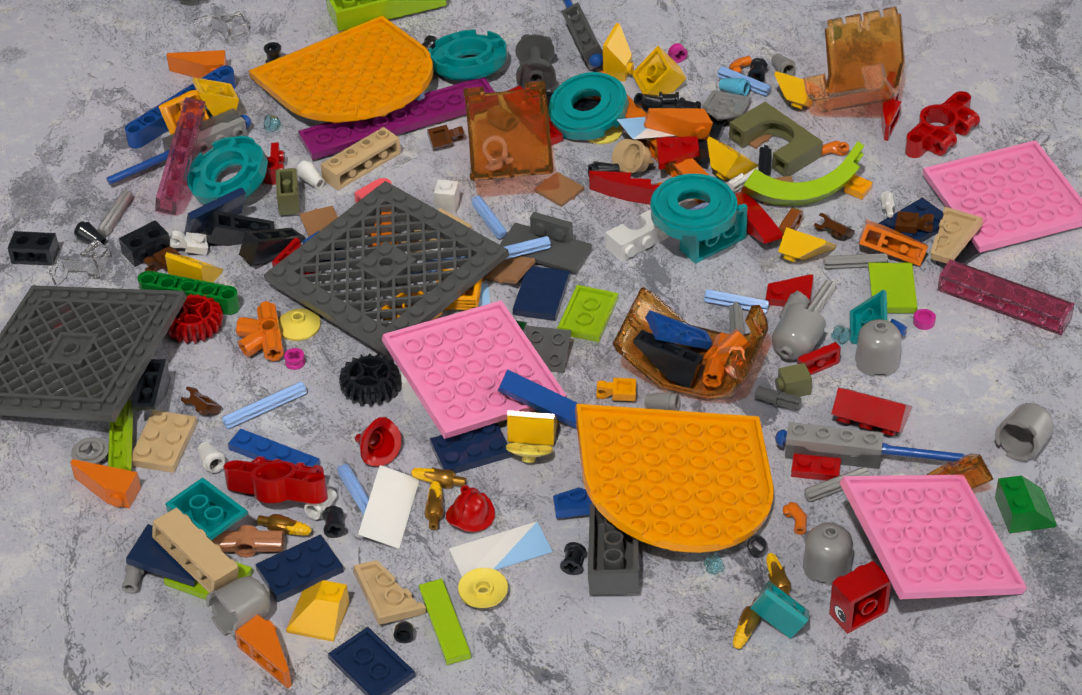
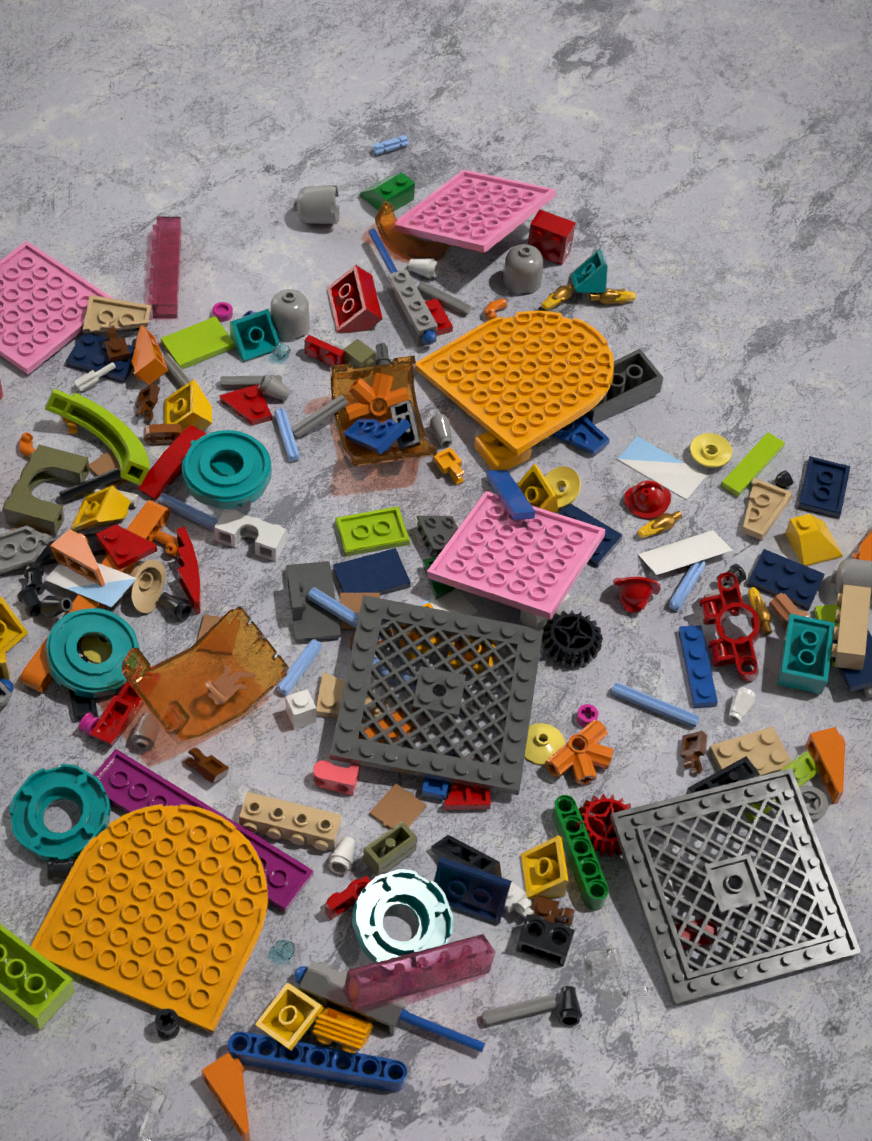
camera: 130 degrees left, 10 degrees up
(33, 248) = (633, 1043): black brick -> none
(266, 245) = (467, 823): black slope -> none
(446, 477) = (631, 536): pearl gold piece -> none
(535, 53) = (53, 730): dark grey piece -> none
(573, 558) = (639, 413): black bush -> none
(797, 331) = (310, 368): light grey cylinder -> none

